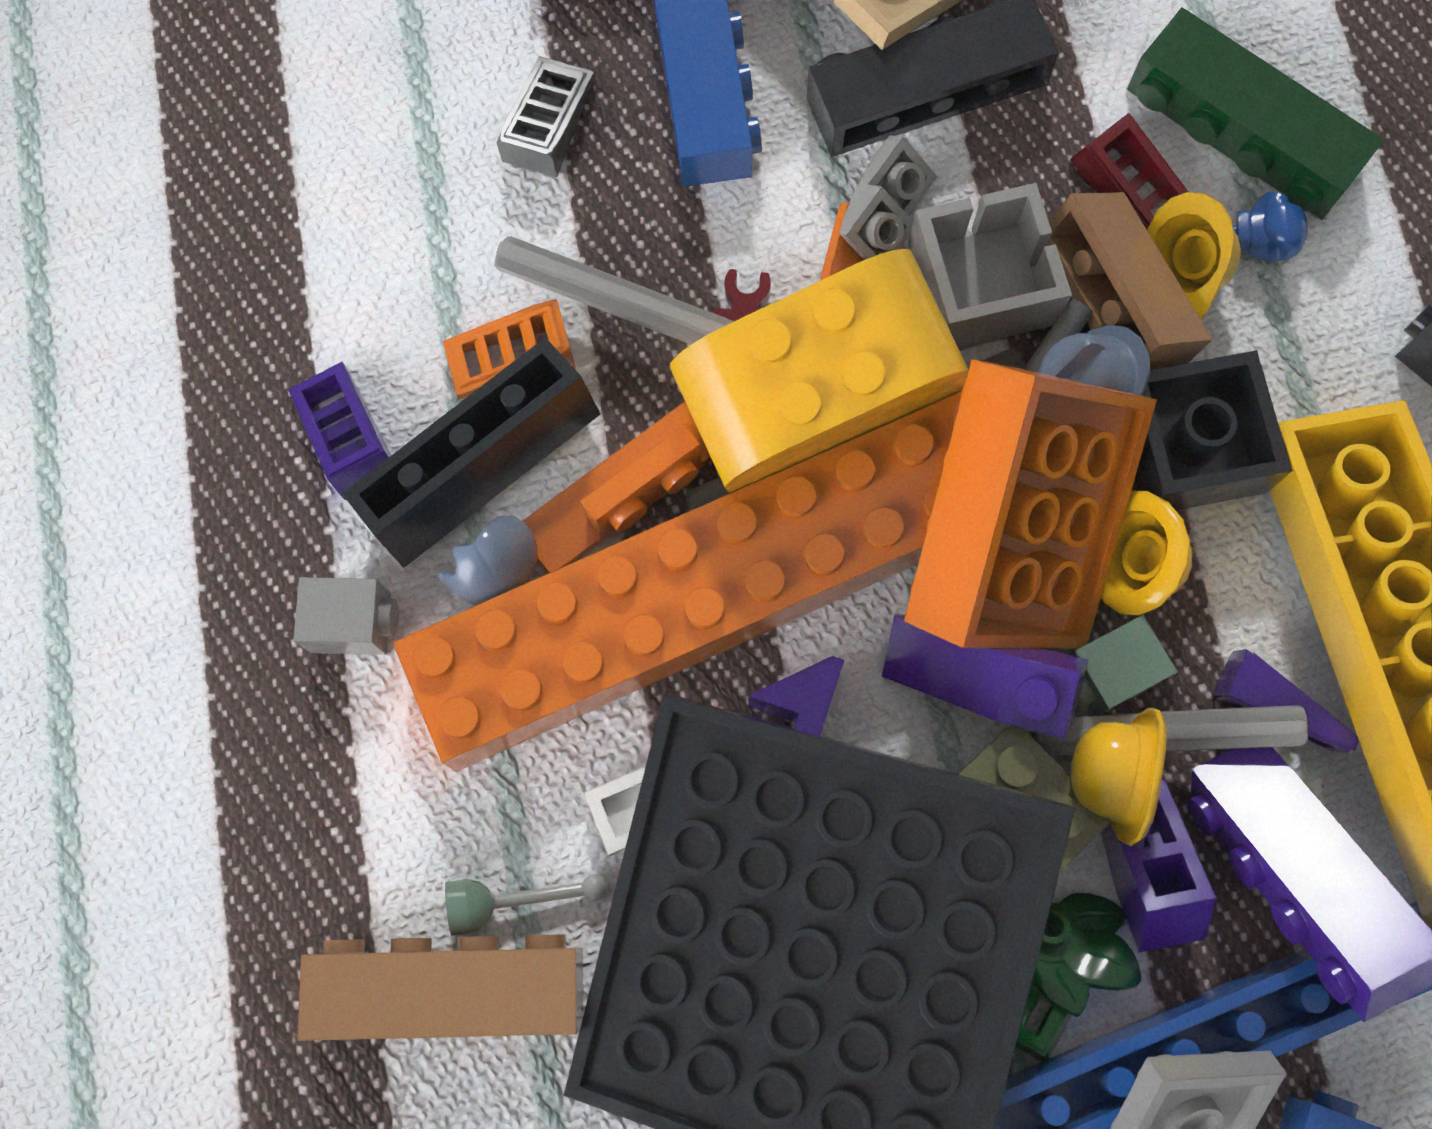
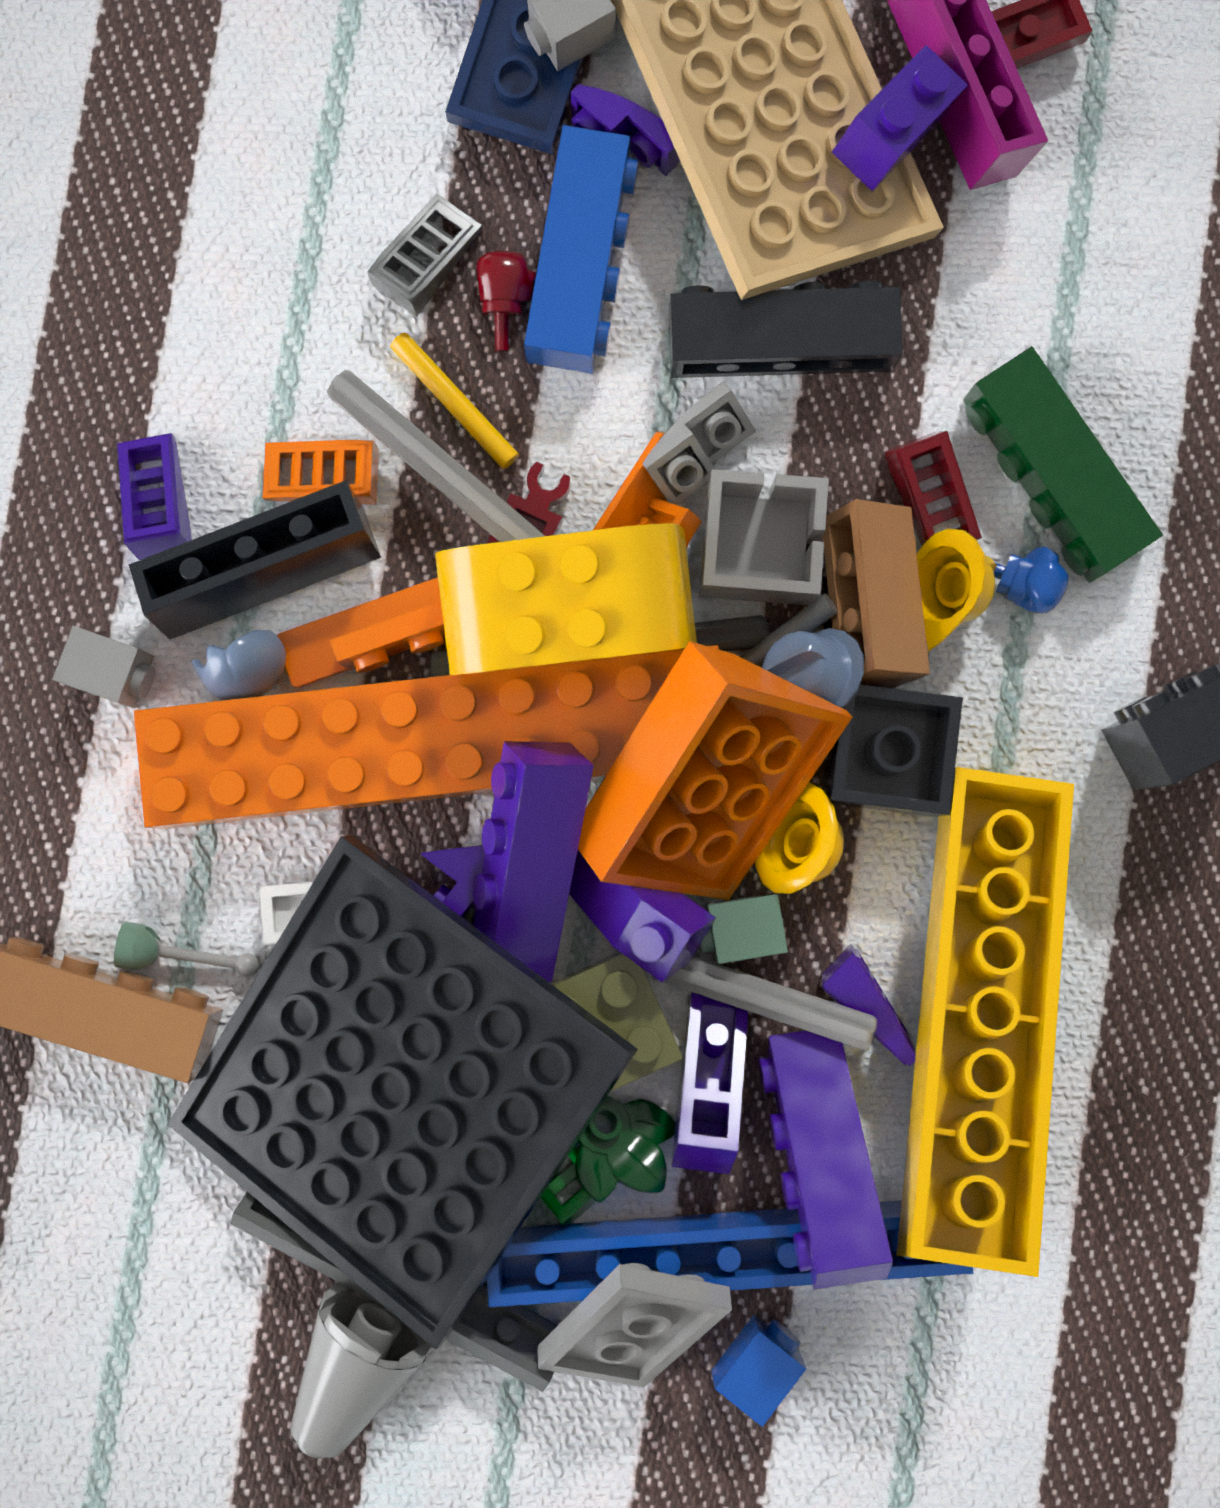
camera: 15 degrees right, 10 degrees up
(623, 242) = (454, 400): none -> yellow bar
(636, 122) = (502, 287): none -> dark red piece
(871, 639) = (531, 849): none -> dark purple brick
(1121, 772) = (697, 1023): yellow hat -> none

